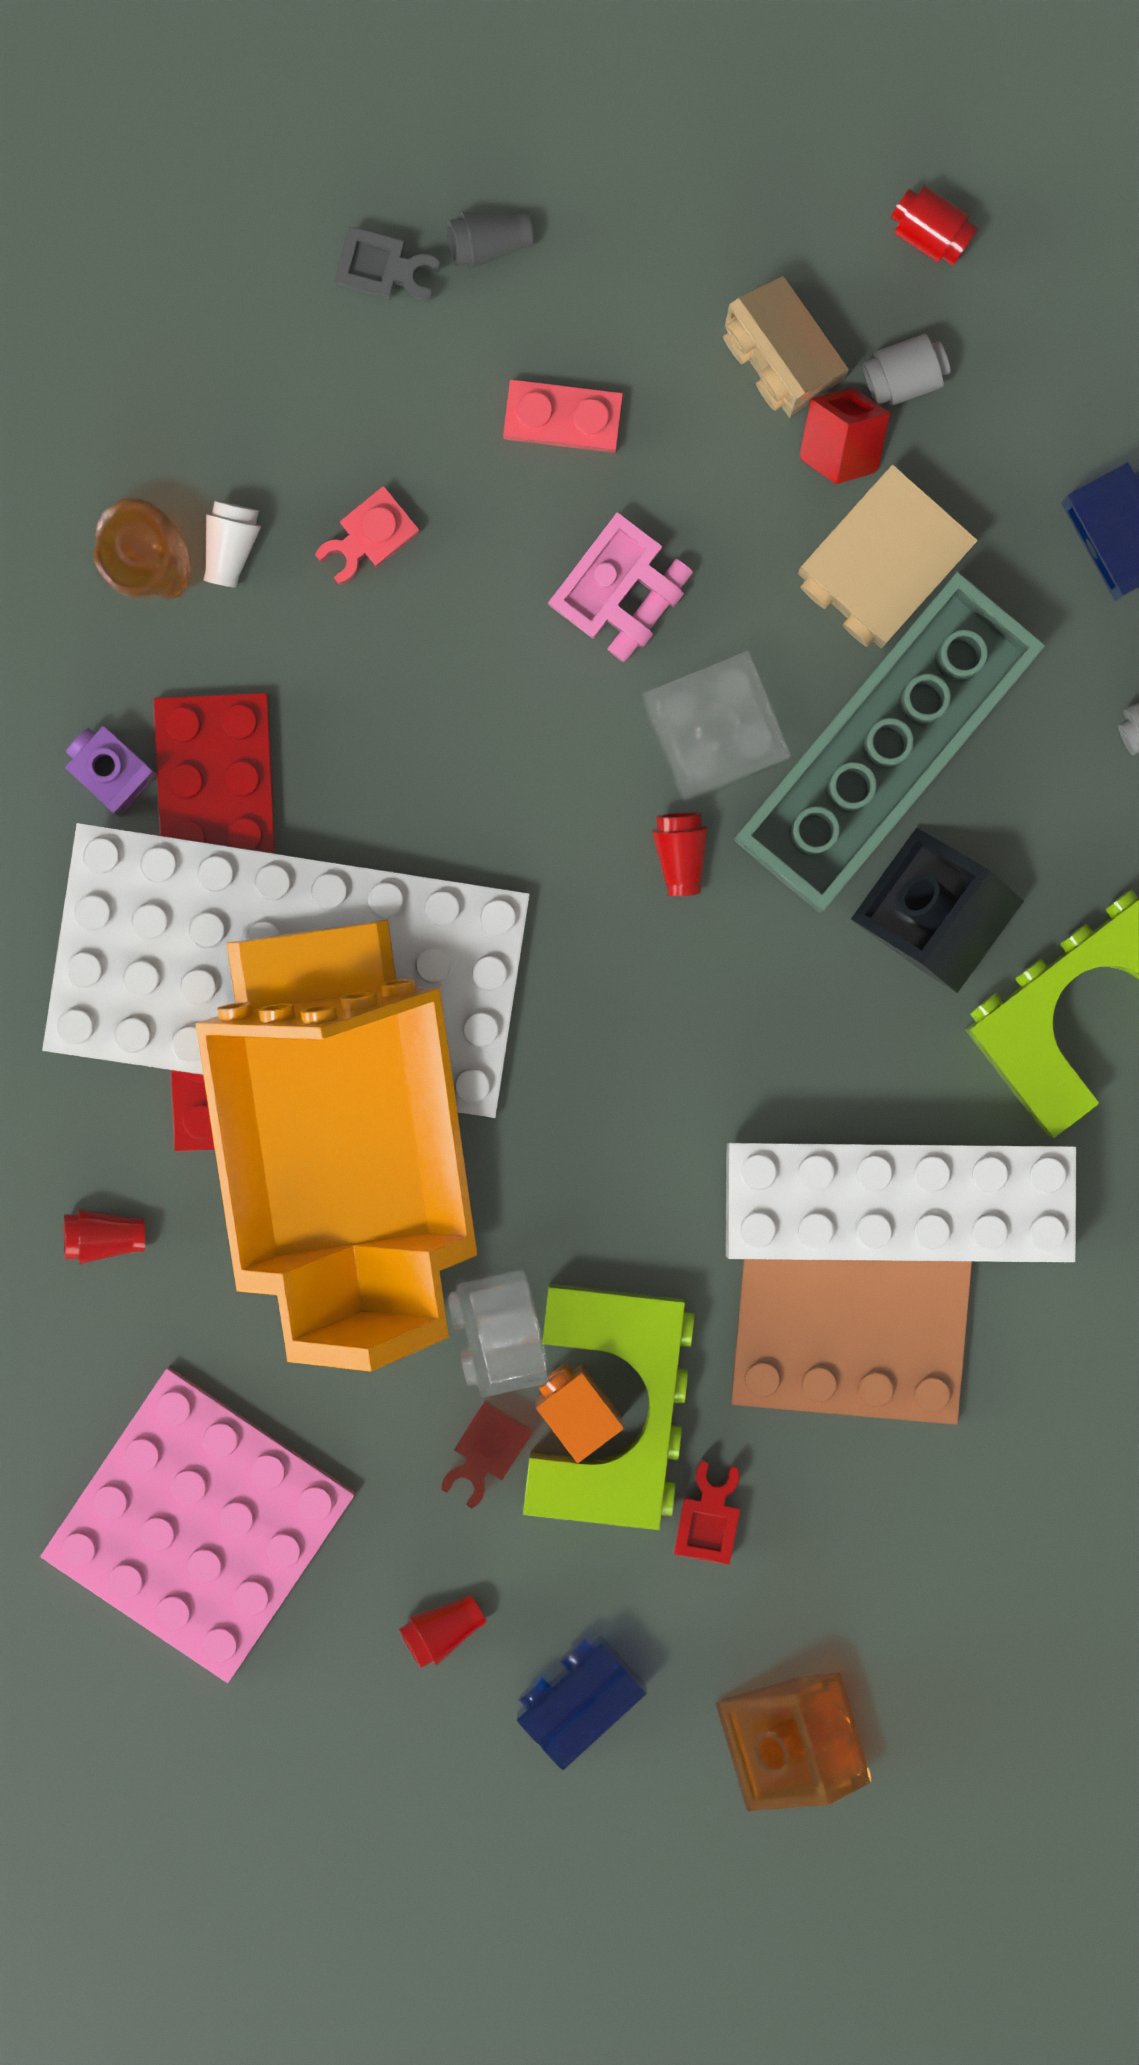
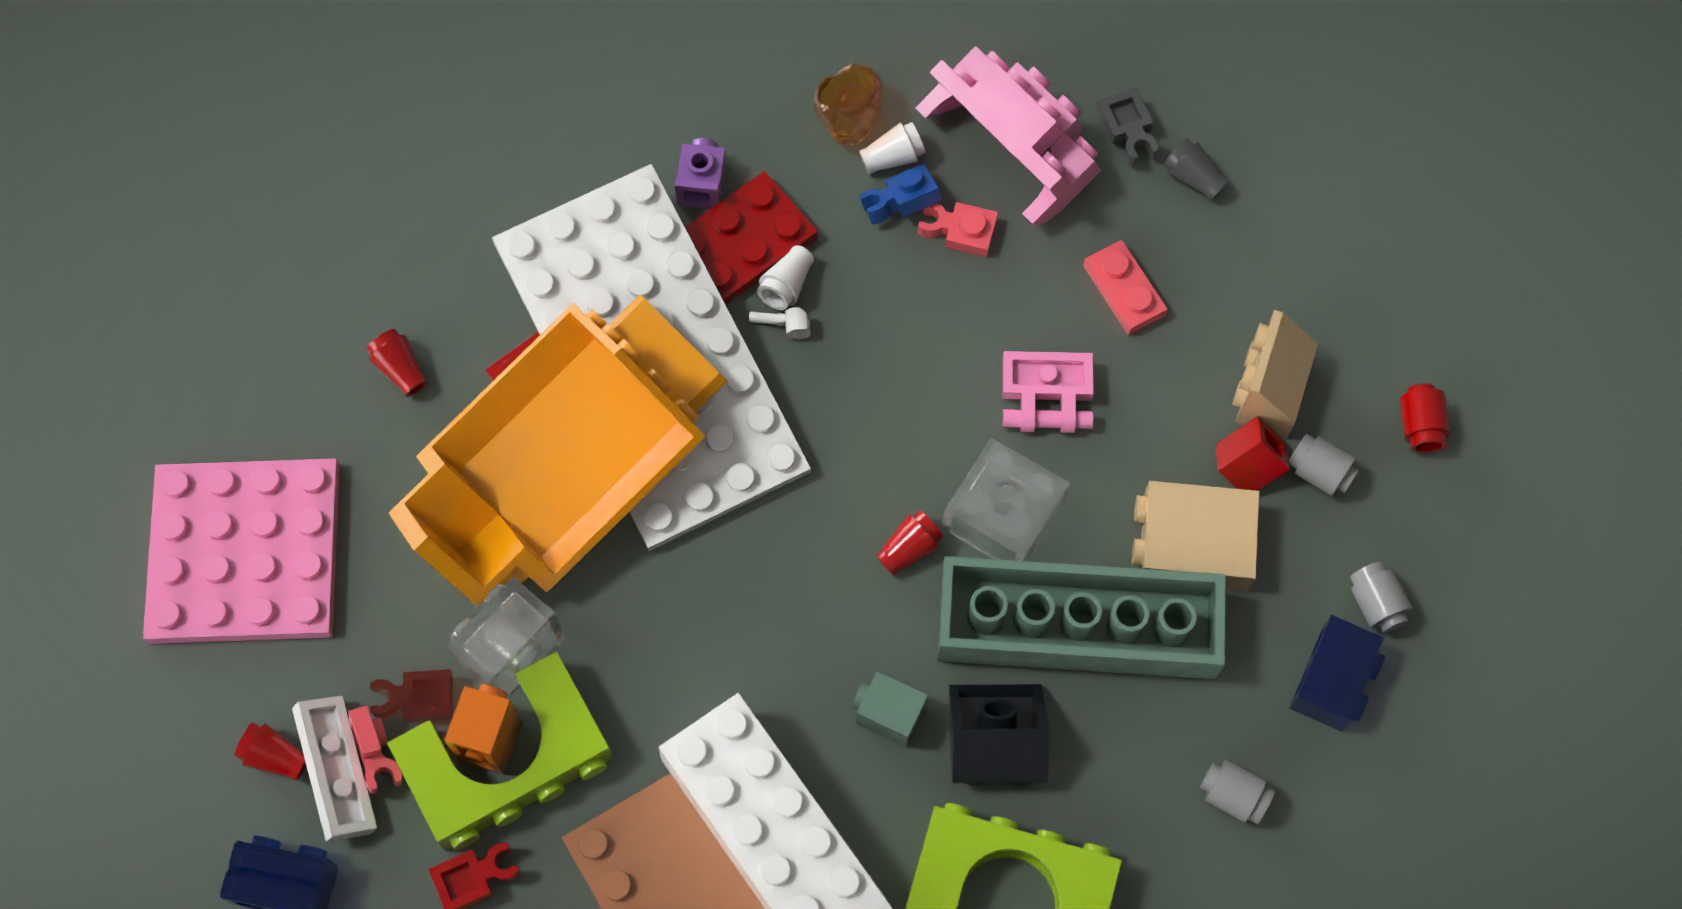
camera: 60 degrees right, 20 degrees down
(292, 563) = (904, 193): none -> blue plate
(298, 767) = (784, 280): none -> white cone
(305, 389) = (1023, 120): none -> bright pink piece
(352, 790) = (794, 319): none -> white hand
(497, 1526) = (369, 738): none -> coral plate
(503, 1579) = (334, 768): none -> white plate
(837, 998) = (889, 708): none -> sand green brick
(1080, 425) = (1380, 597): none -> light grey brick

